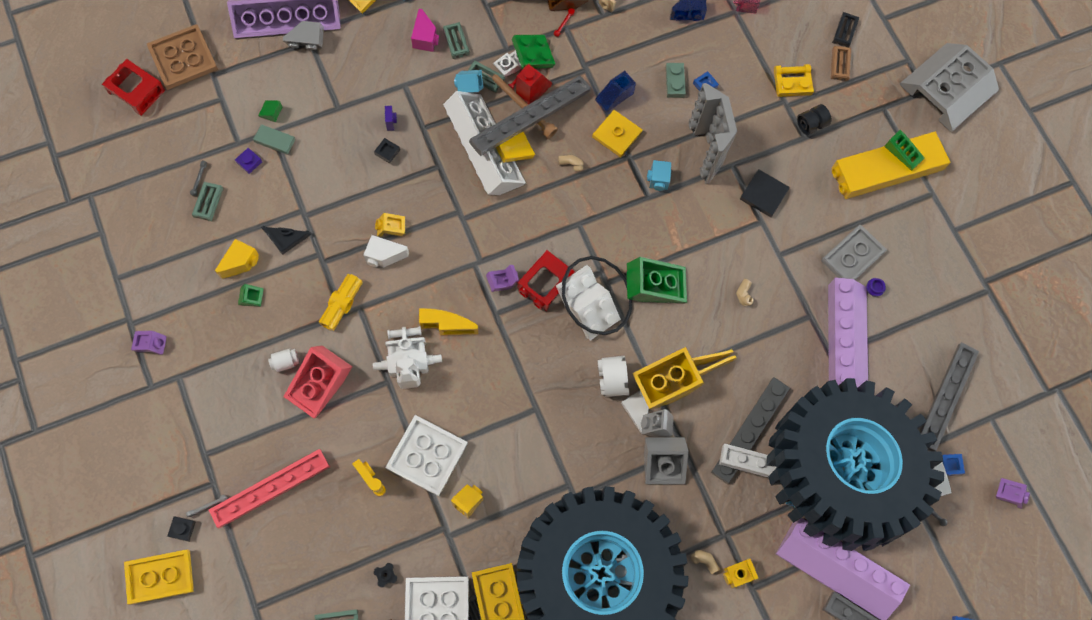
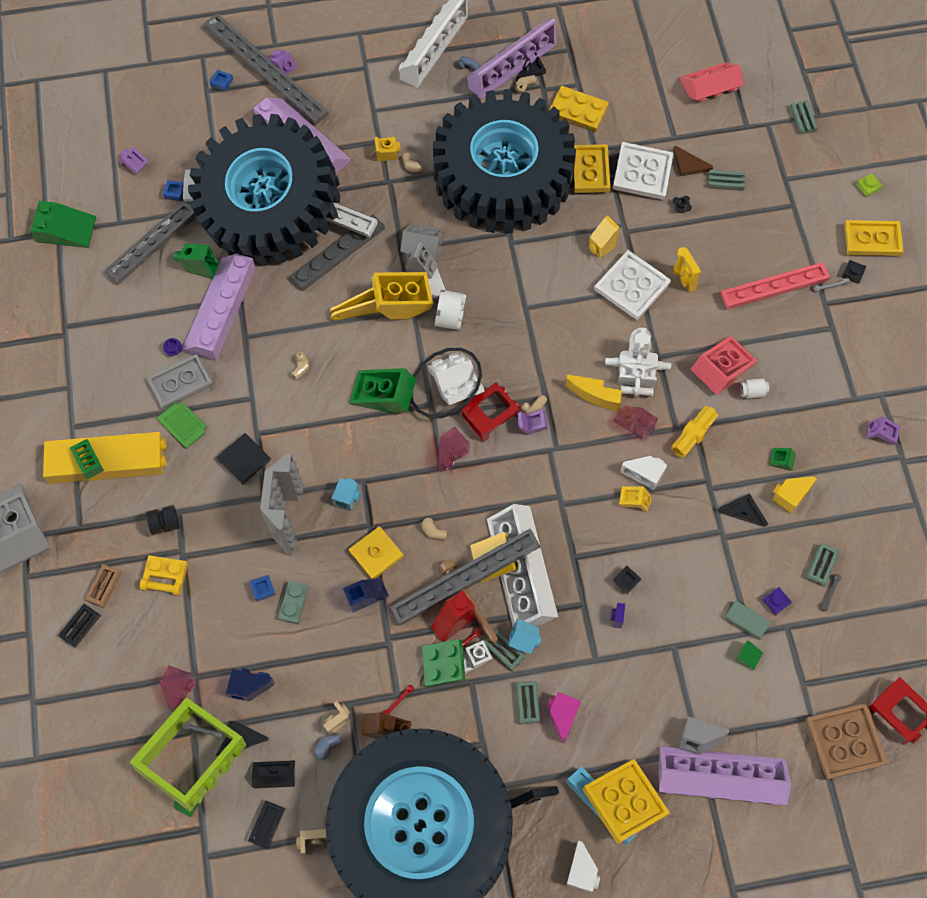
camera: 160 degrees left, 5 degrees down
(400, 297) = (636, 421): none -> clear pink slope
(504, 295) = (537, 405): none -> tan arm
(575, 237) = (451, 447): none -> clear pink slope
(834, 215) = (182, 424): none -> bright green window
(893, 377) = (197, 260): none -> green torso
(1047, 395) = (62, 225): none -> green slope

